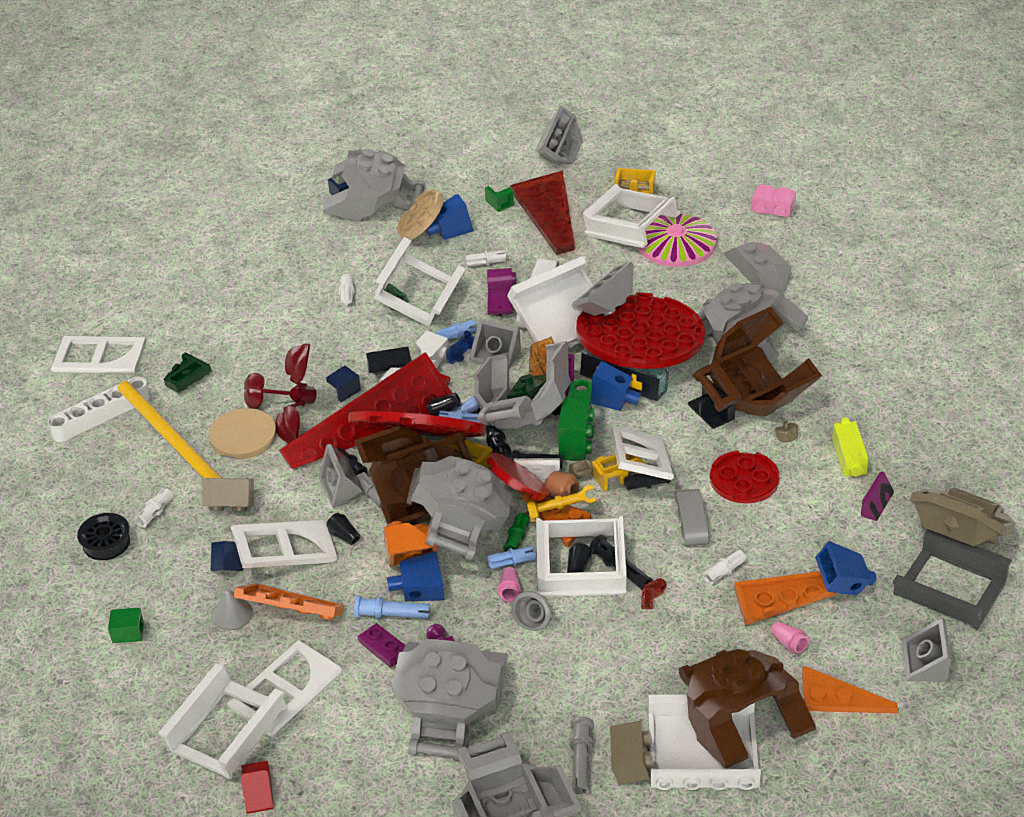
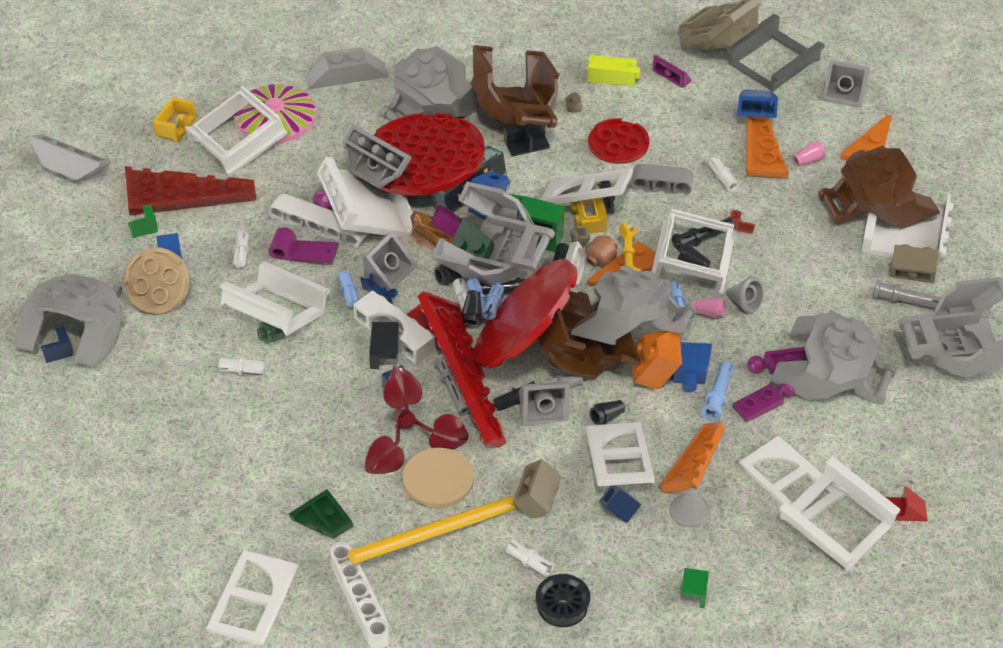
camera: 80 degrees left, 5 degrees up
(517, 476) = (604, 265): red tile -> none
(773, 200) = (254, 36): bright pink brick -> none

